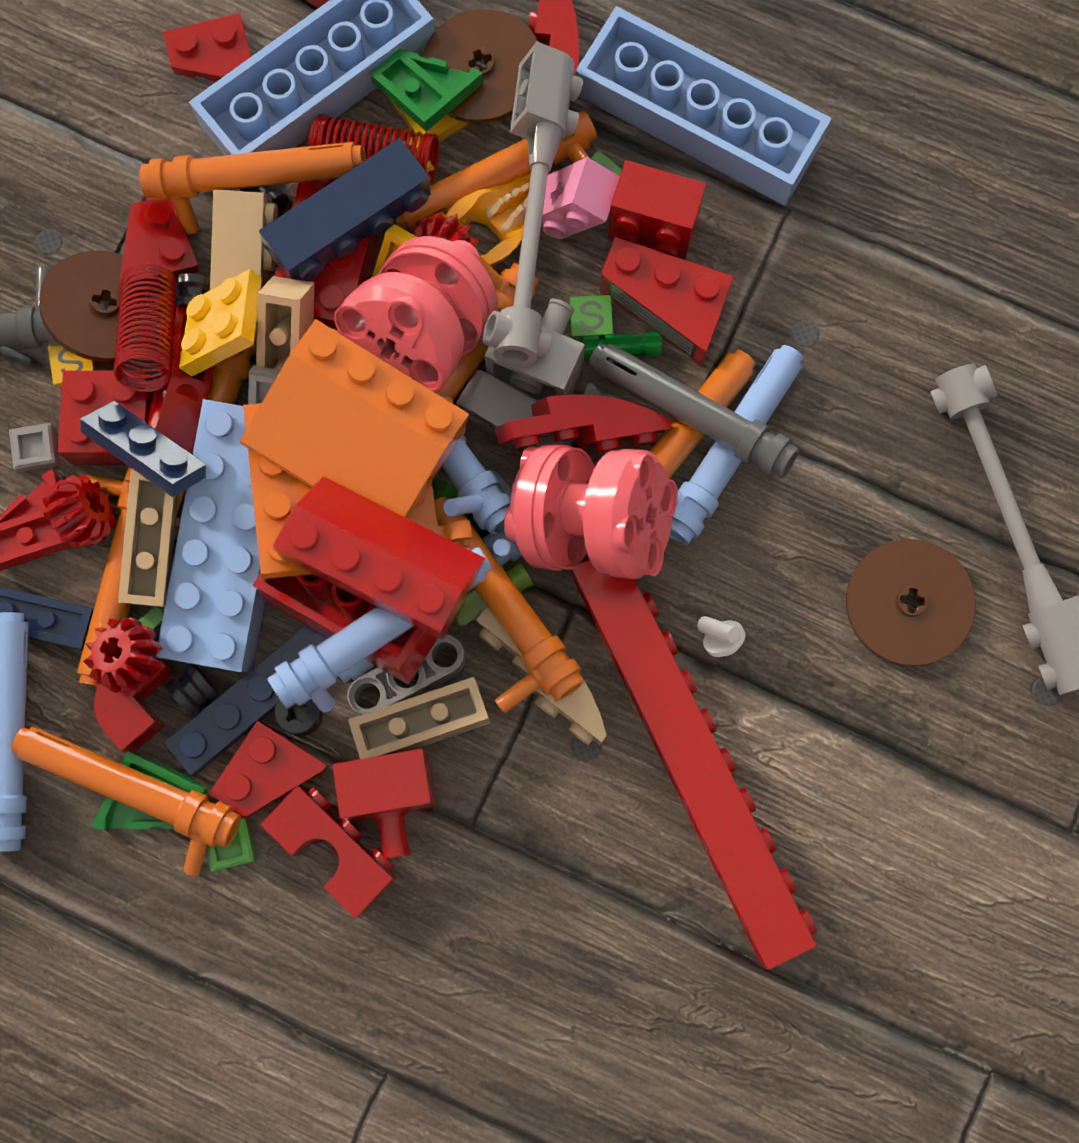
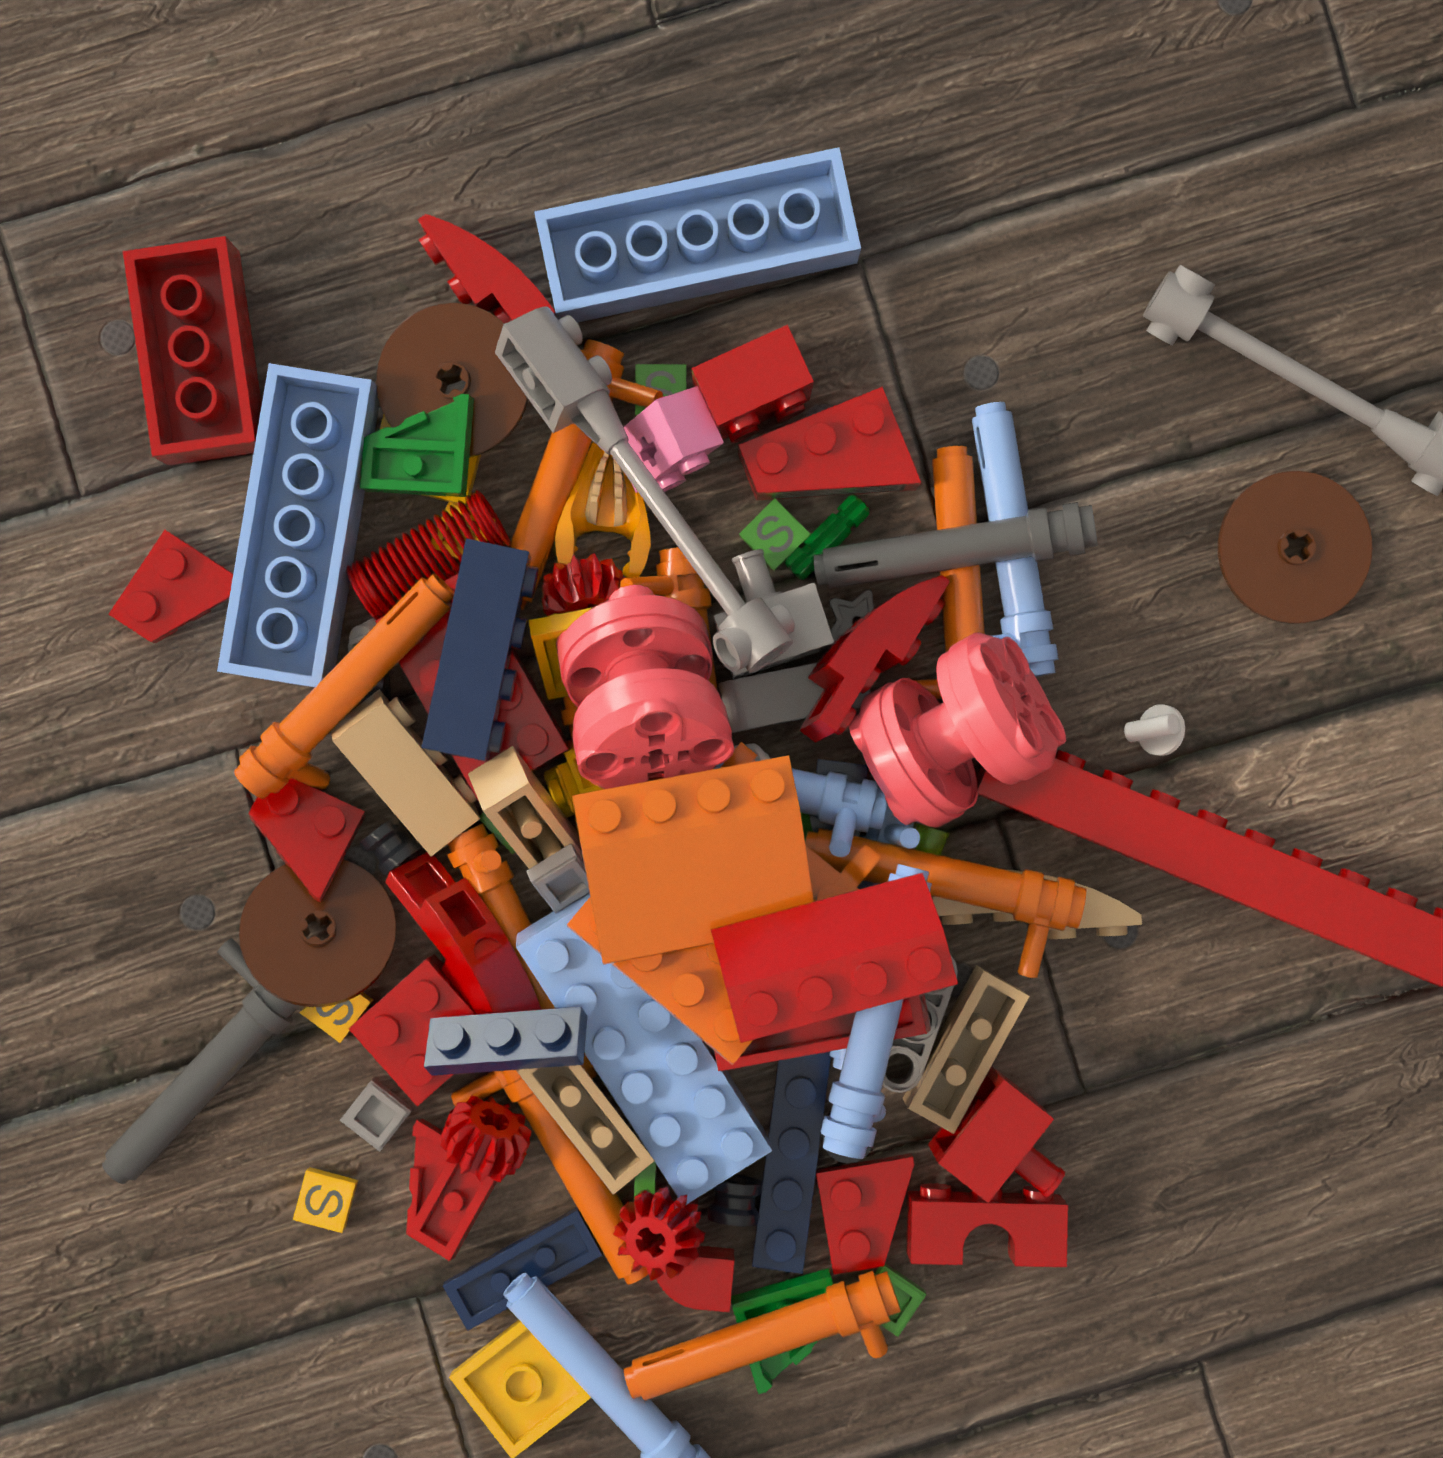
camera: 45 degrees left, 10 degrees up
(148, 325) = (423, 955): red piece -> none
(220, 323) = (461, 860): yellow plate -> none

